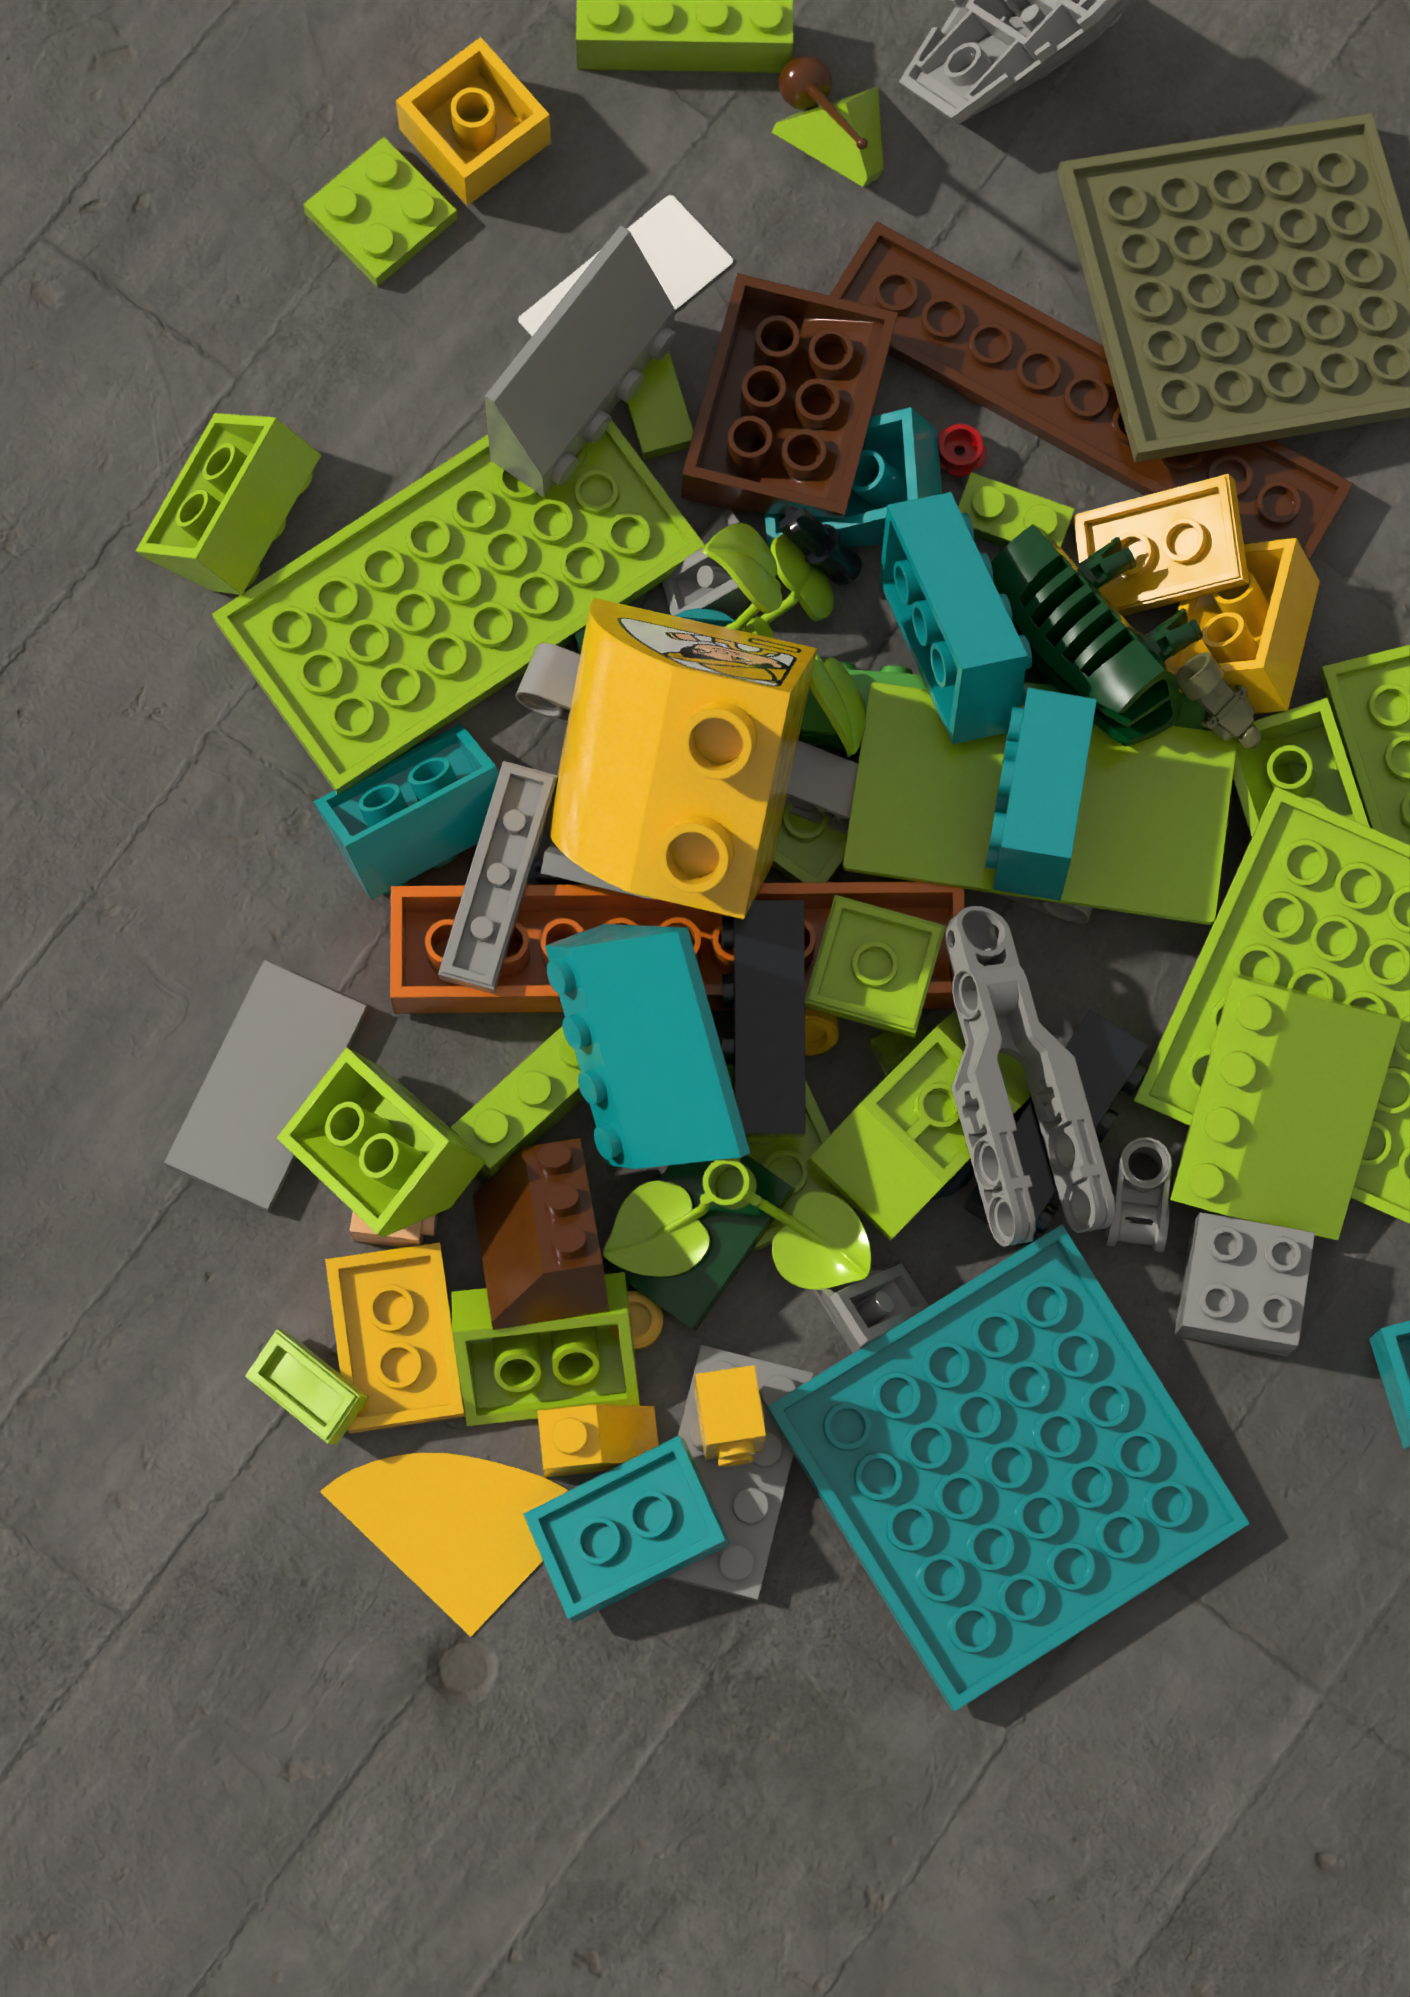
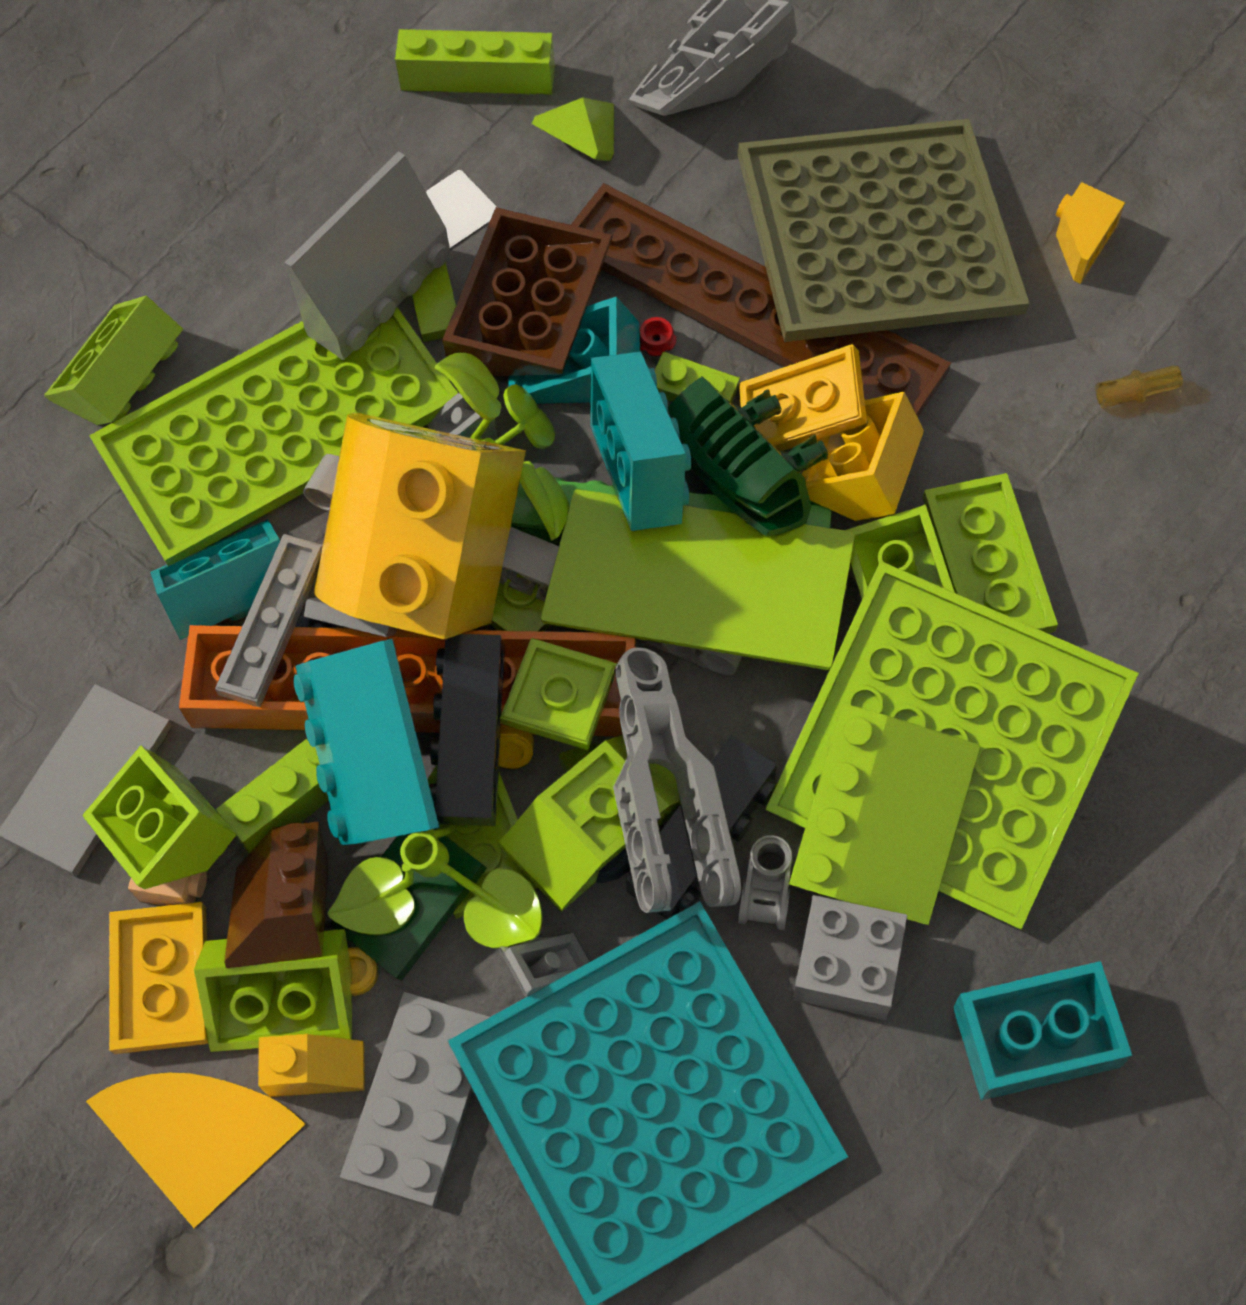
camera: 10 degrees right, 10 degrees down
(306, 1387) = (81, 1014): lime tile -> none
(380, 211) = (250, 176): lime plate -> none
(473, 121) = (319, 114): yellow brick -> none
(626, 1529) = (325, 1140): teal plate -> none
(730, 1415) = (412, 1044): yellow brick -> none
(807, 84) = (560, 91): reddish brown sword -> none
(820, 545) = (543, 393): black axle -> none
(1040, 793) = (694, 562): teal brick -> none
(1227, 709) = (847, 510): olive piece -> none

